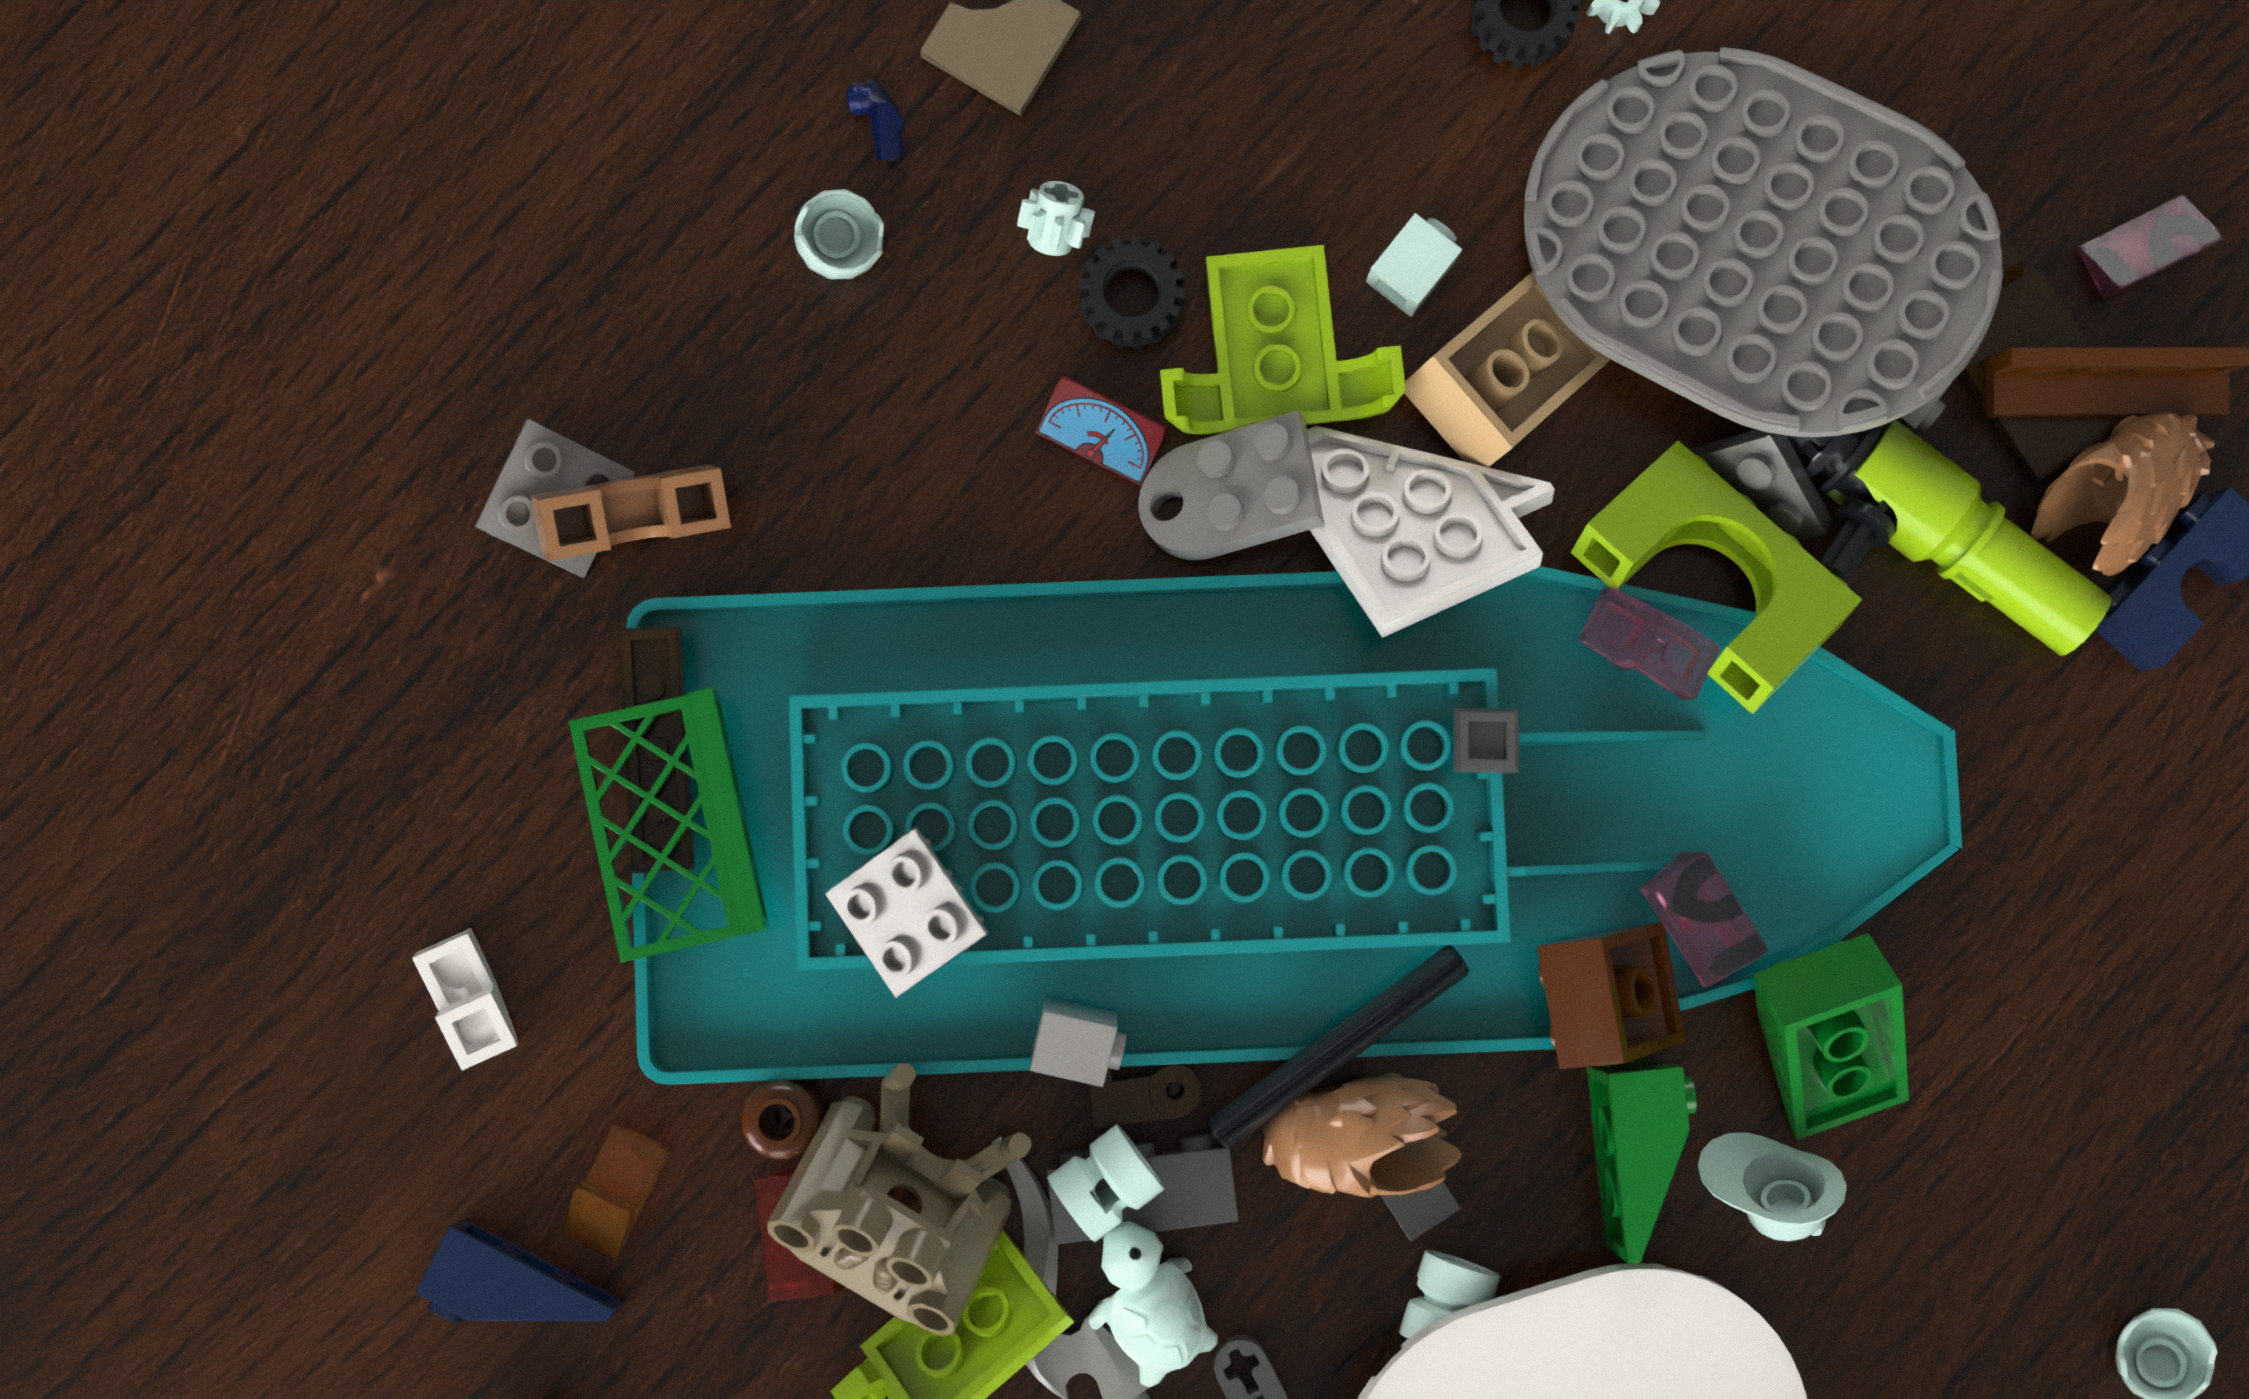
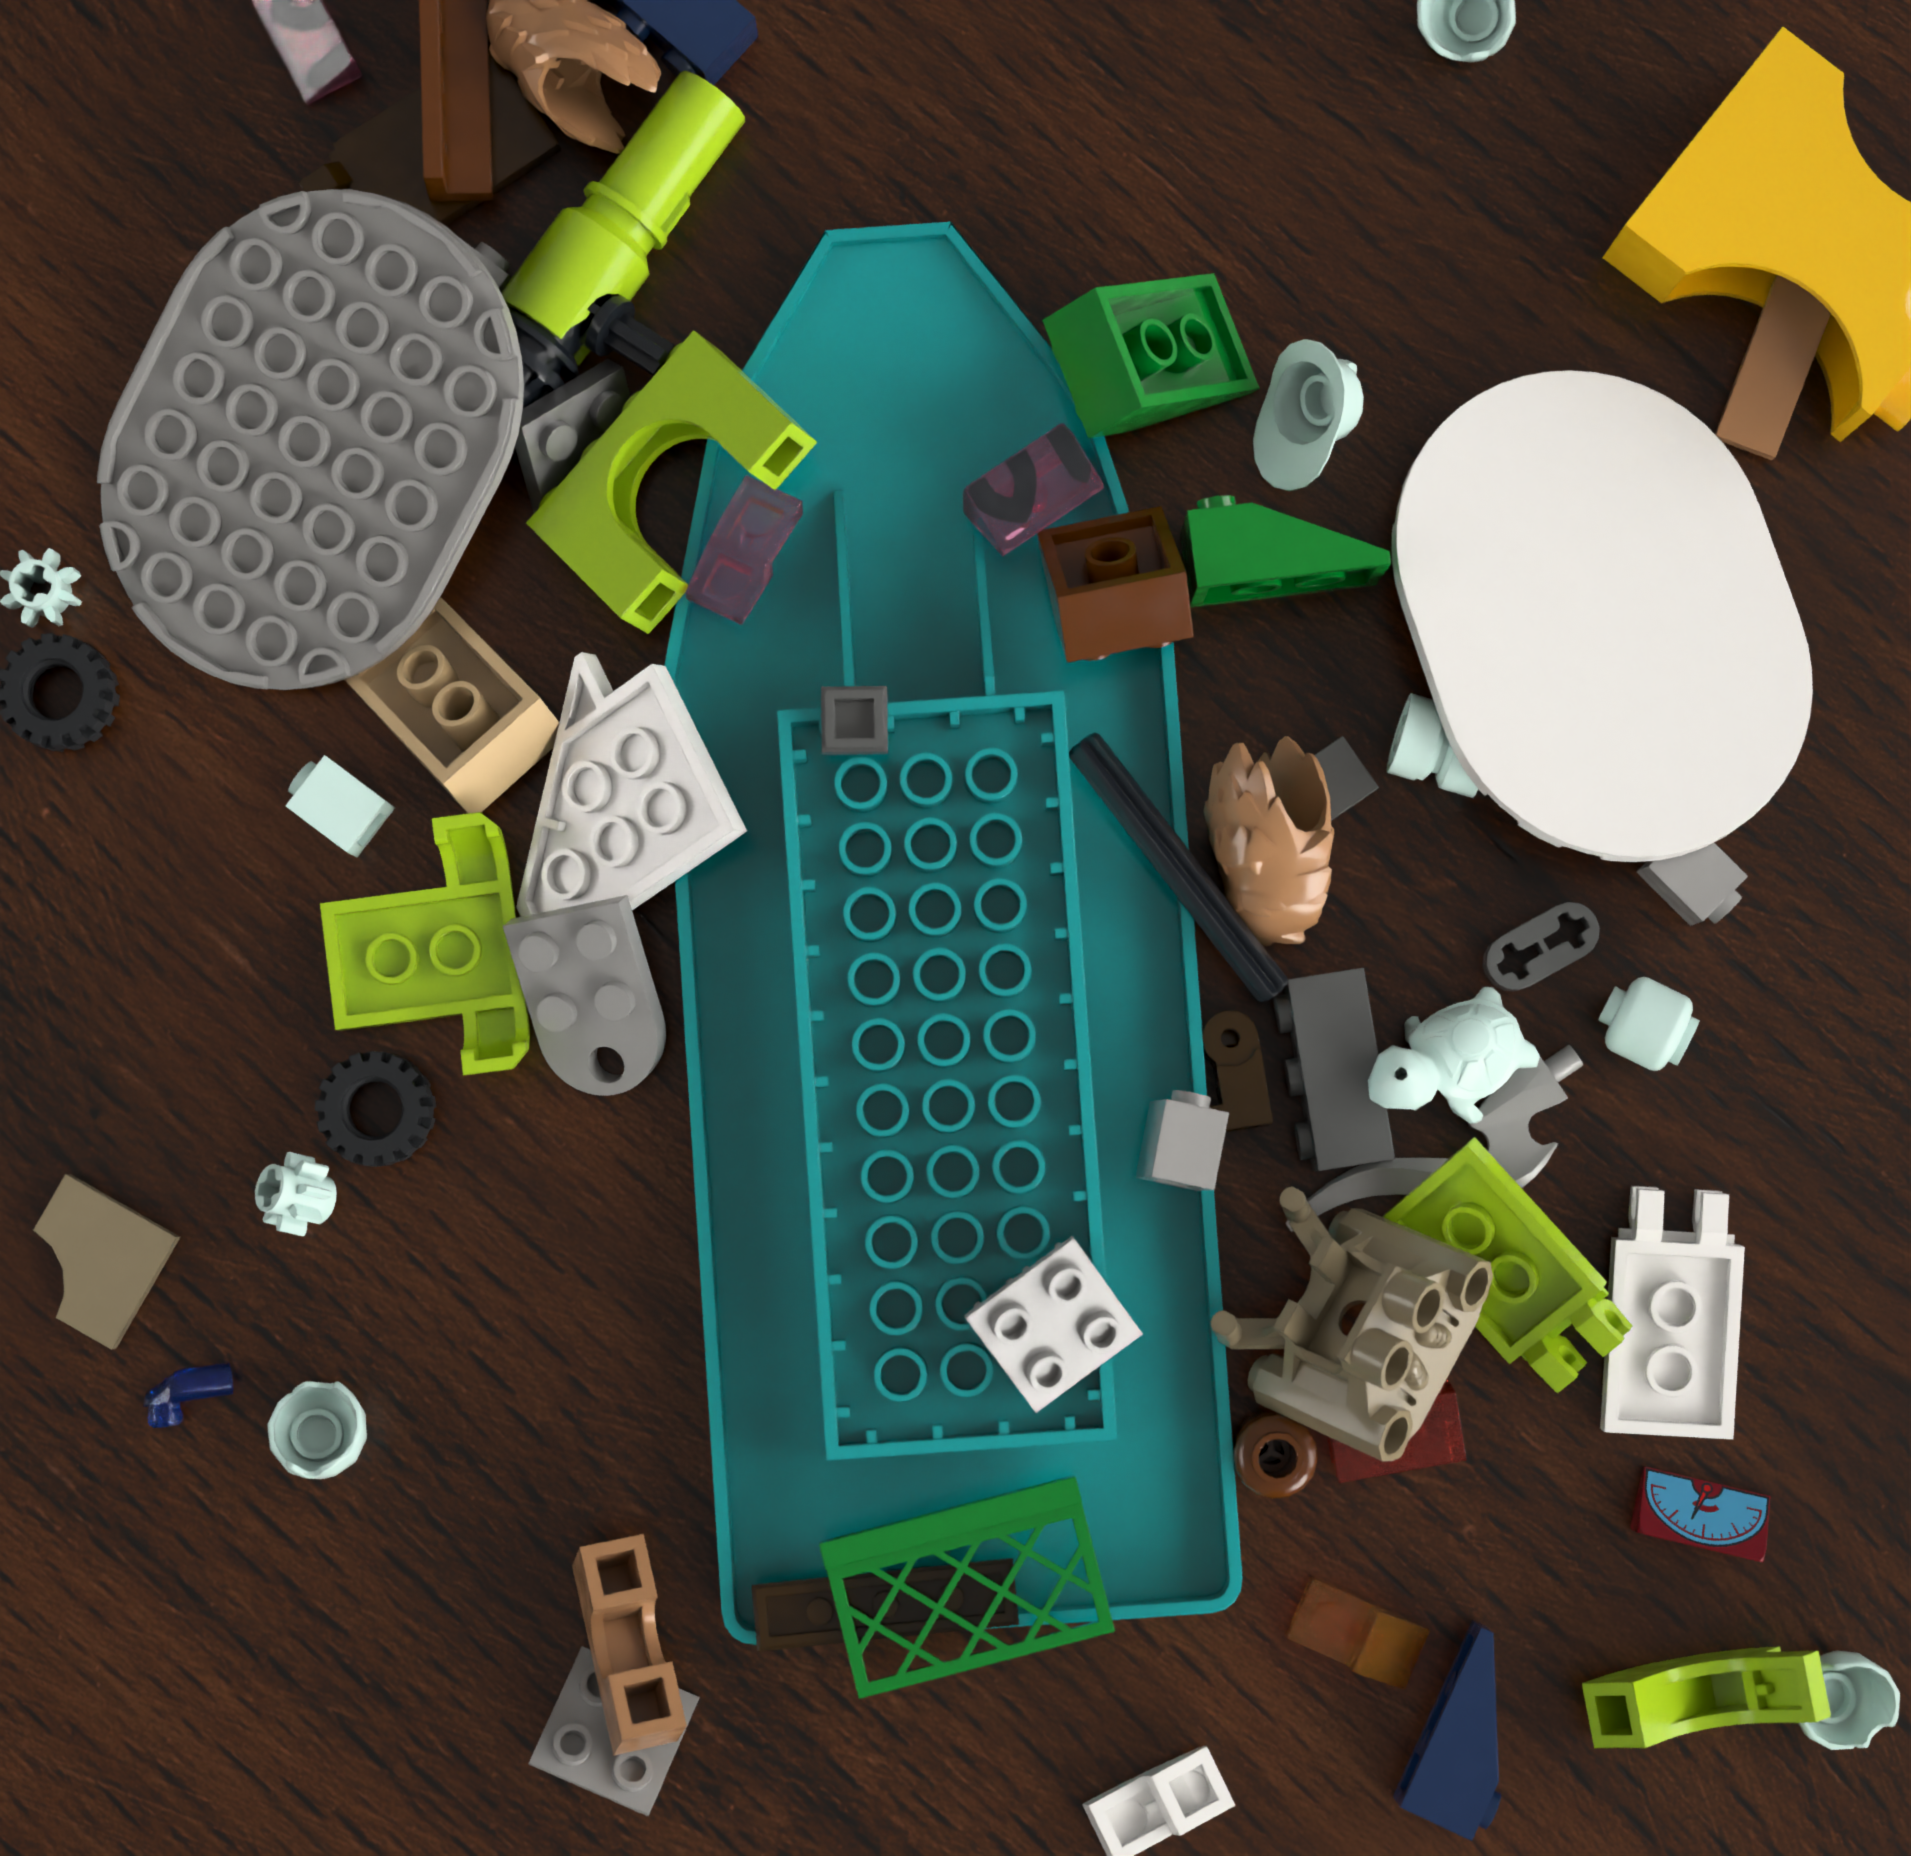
camera: 90 degrees left, 0 degrees up
(1101, 431) = (527, 1137): slope -> none
(1122, 1167) = (1313, 1088): light aqua wheel -> none

